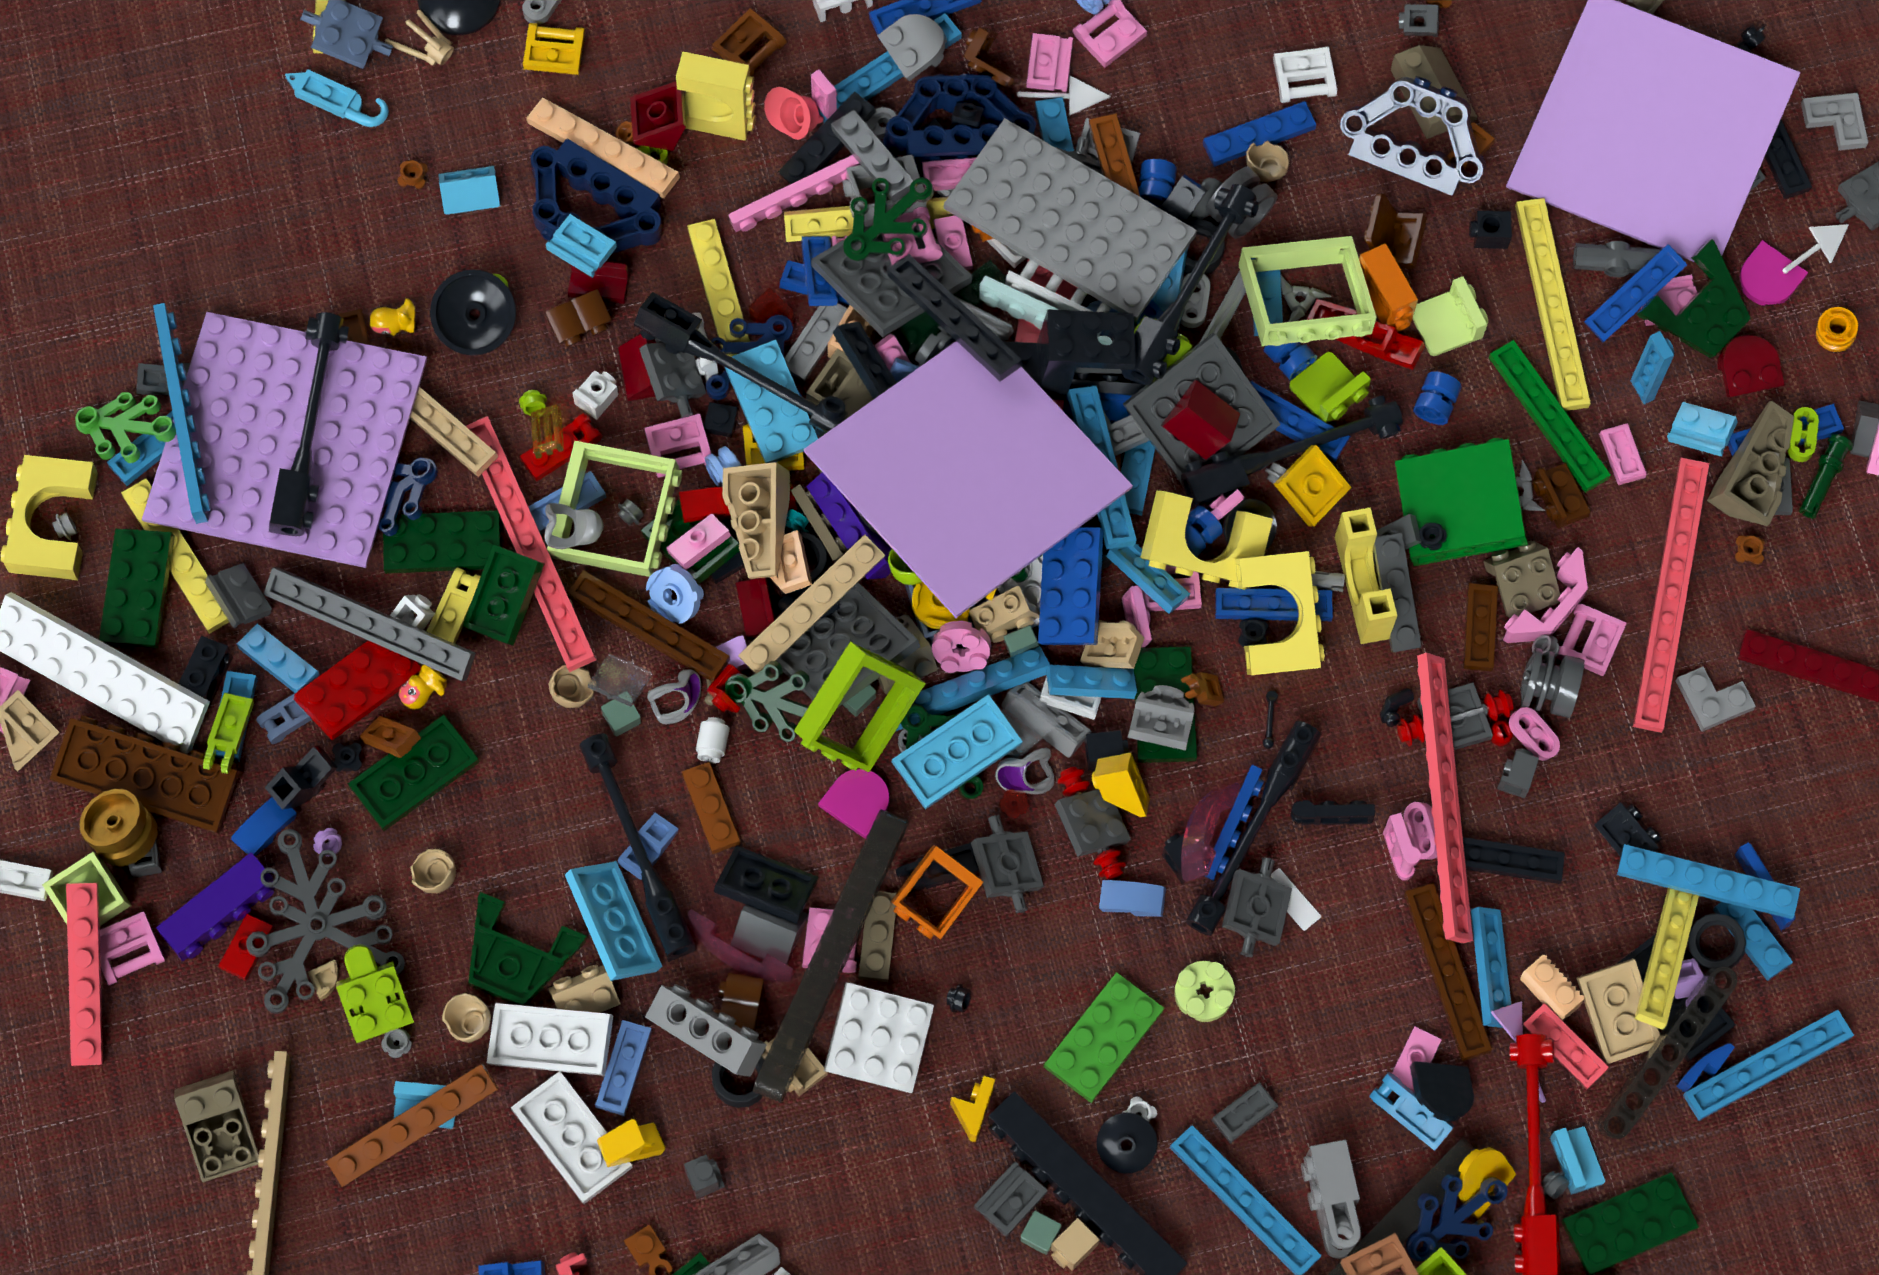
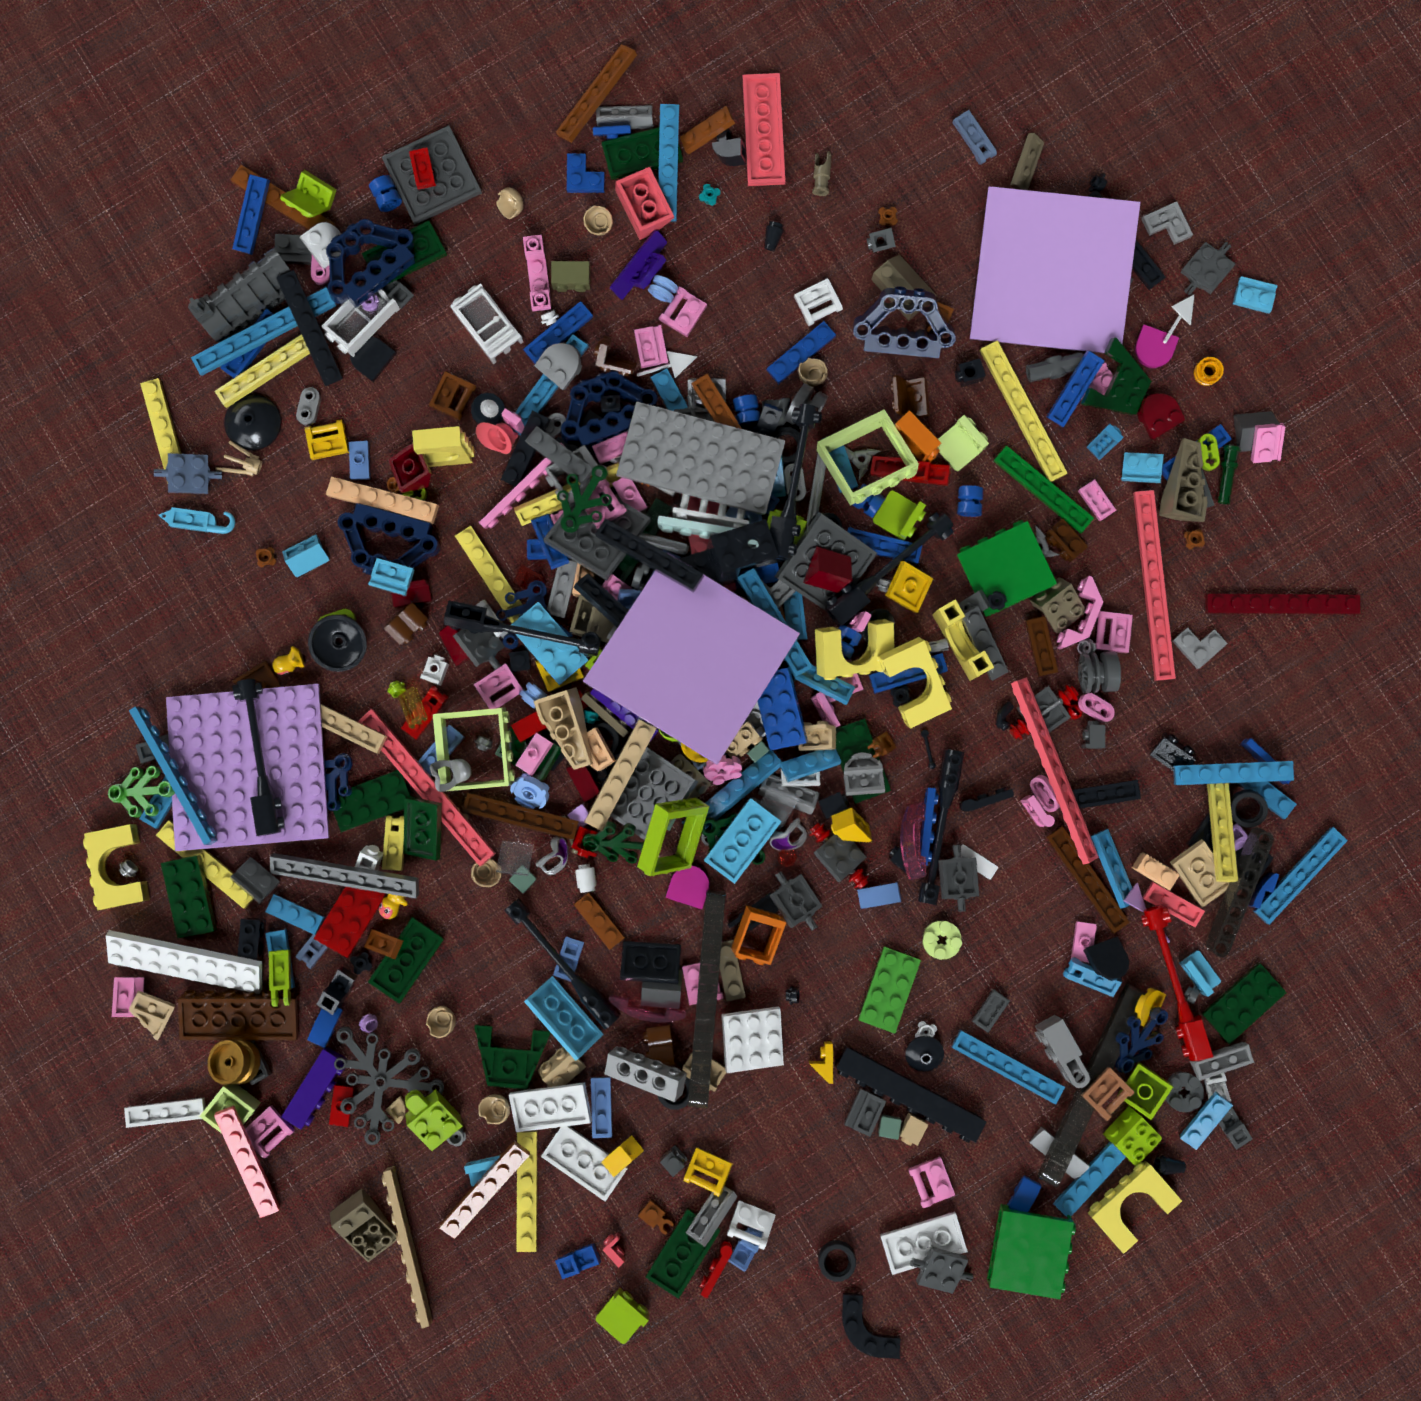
camera: 15 degrees left, 15 degrees up
(471, 1159) = (527, 1194): none -> light yellow plate
(589, 89) = (359, 460): none -> medium blue plate
(756, 1201) = (709, 1165): none -> yellow plate
(792, 72) = (487, 409): none -> black wheel

